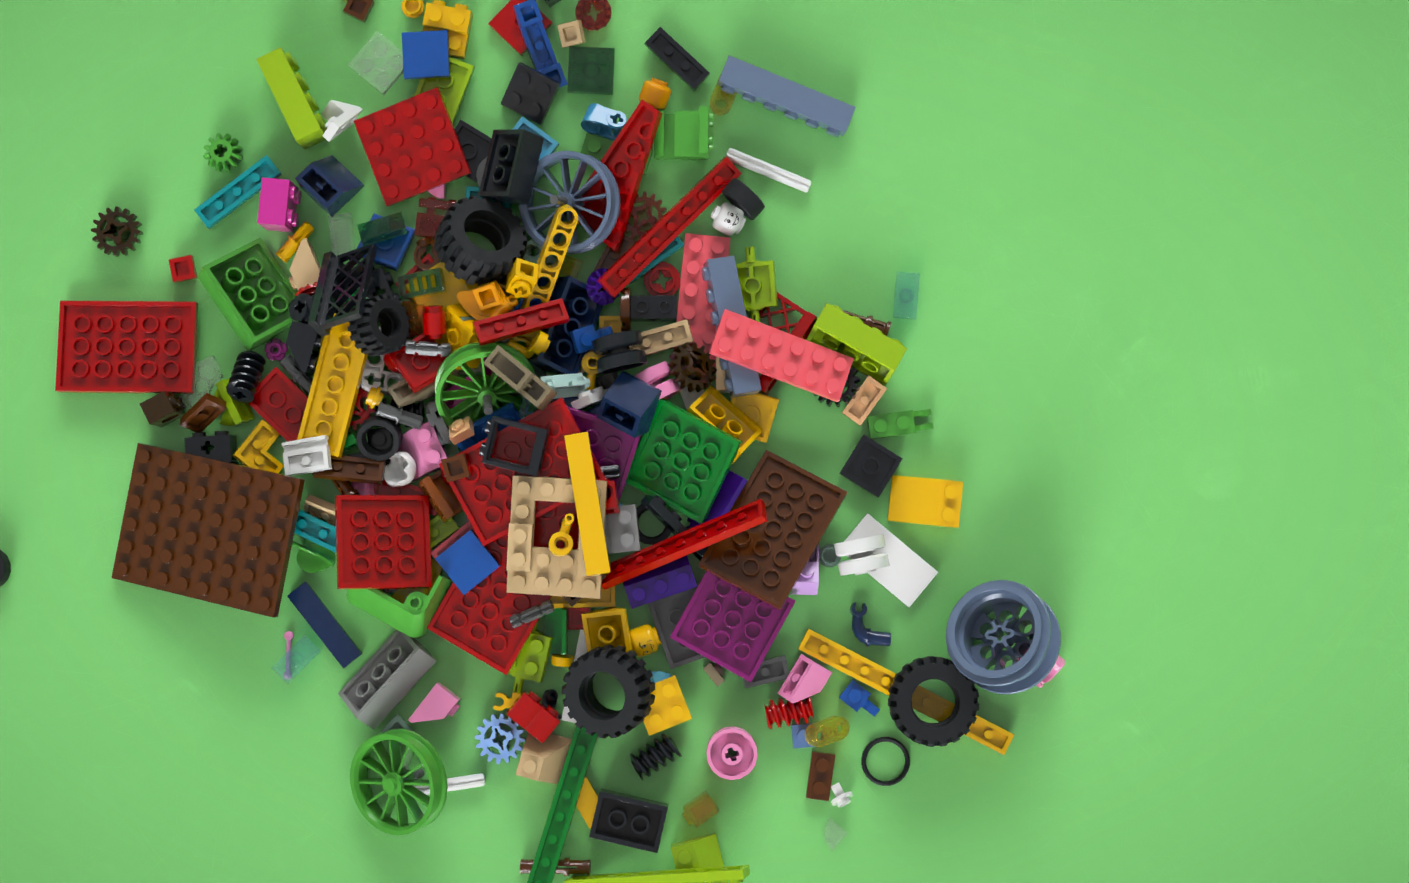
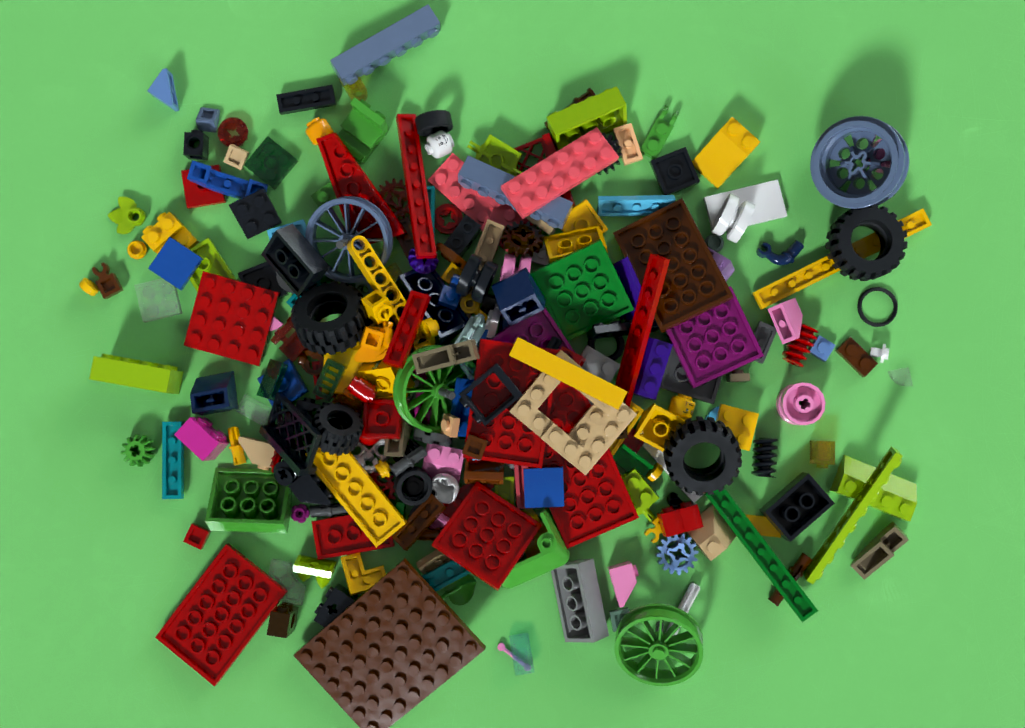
camera: 55 degrees left, 0 degrees up
(107, 233) = (130, 568): dark brown gear -> none
(203, 413) = (306, 594): reddish brown plate -> none
(245, 376) = (303, 547): black piece -> none
(306, 455) = (389, 544): white plate -> none
(324, 624) = (512, 616): dark blue tile -> none
(339, 118) = (173, 353): white slope -> none
(428, 348) = (376, 408): dark grey axle -> none
(531, 613) = (611, 469): dark grey axle -> none
(563, 536) = (578, 406): yellow plate -> none
(602, 121) = (311, 179): dark azure piece -> none
(768, 170) = (427, 94): white axle -> none
(807, 449) = (632, 205): none -> medium azure plate
(828, 731) = (831, 326): clear yellow plate -> none
(856, 697) = (822, 294): blue plate -> none
(906, 295) = (578, 65): clear light blue plate -> none

